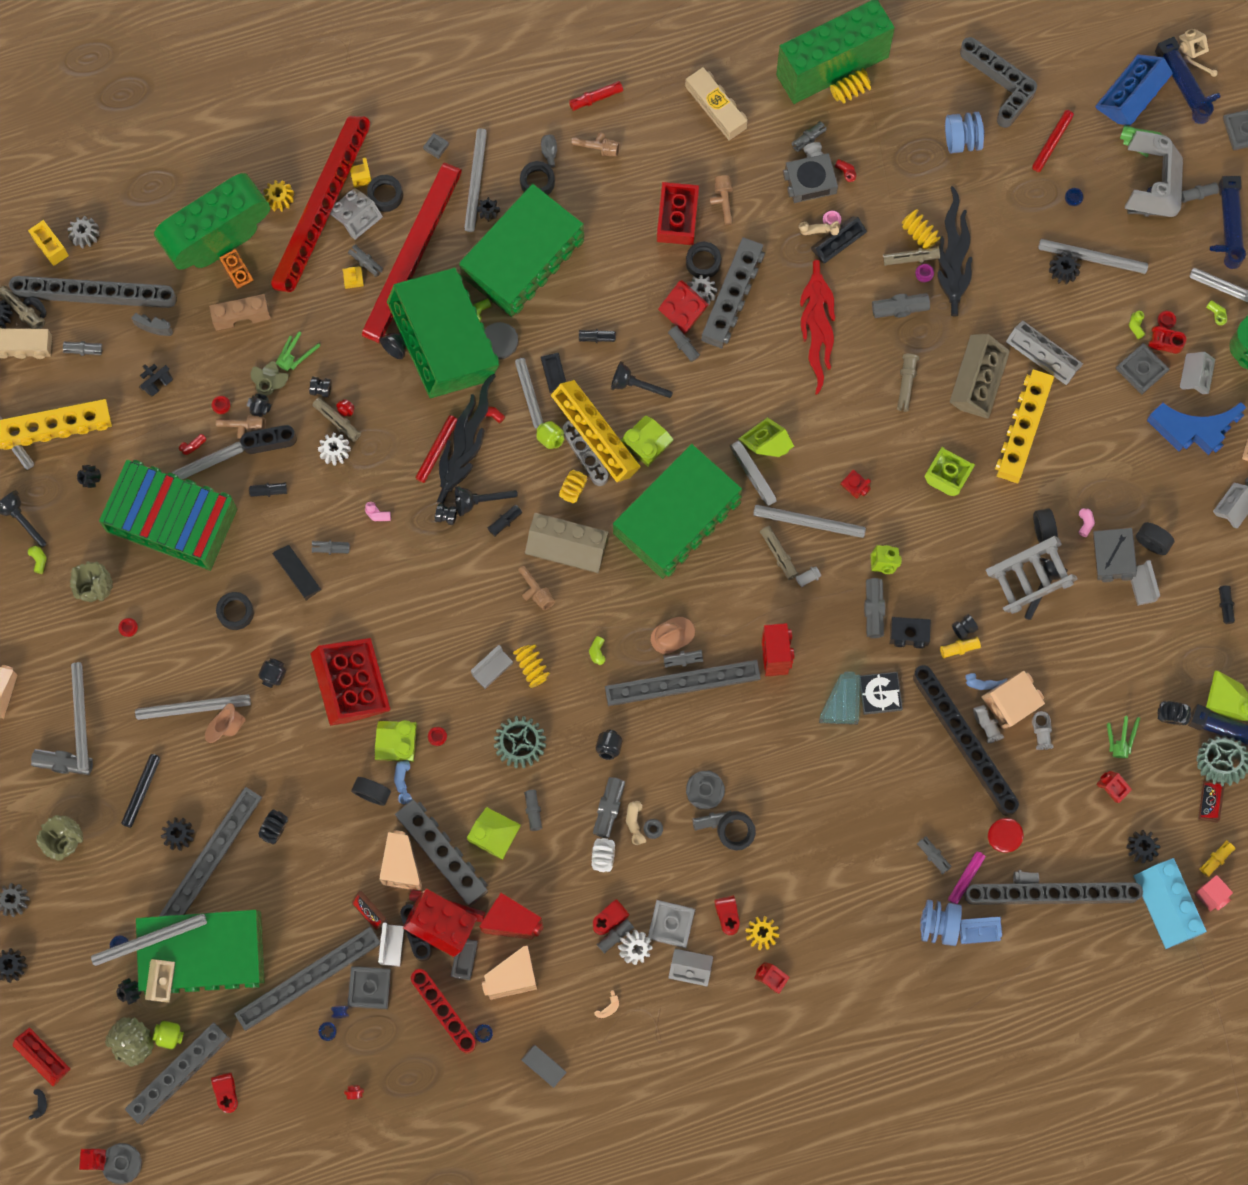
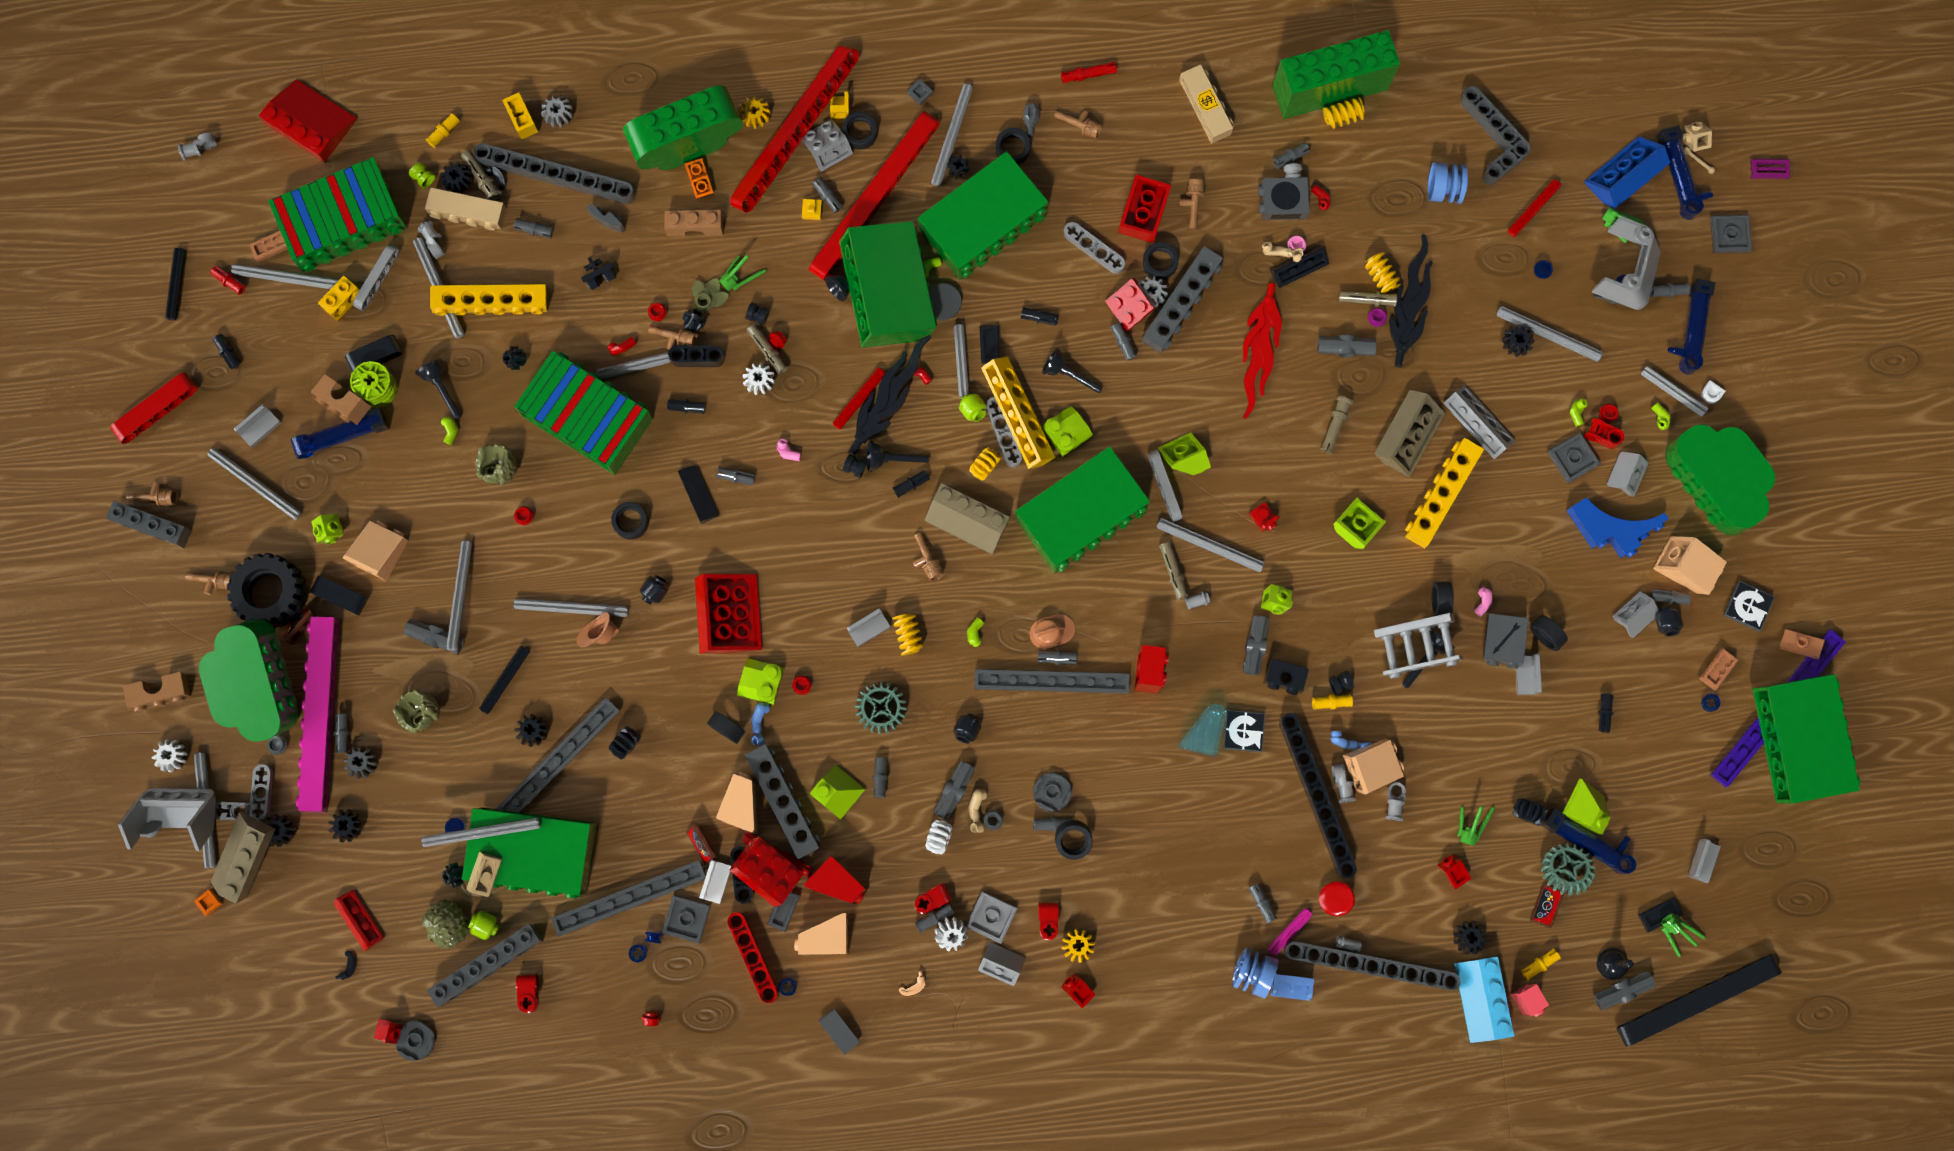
camera: 10 degrees right, 5 degrees up
(637, 259) = (1096, 245): none -> light grey beam

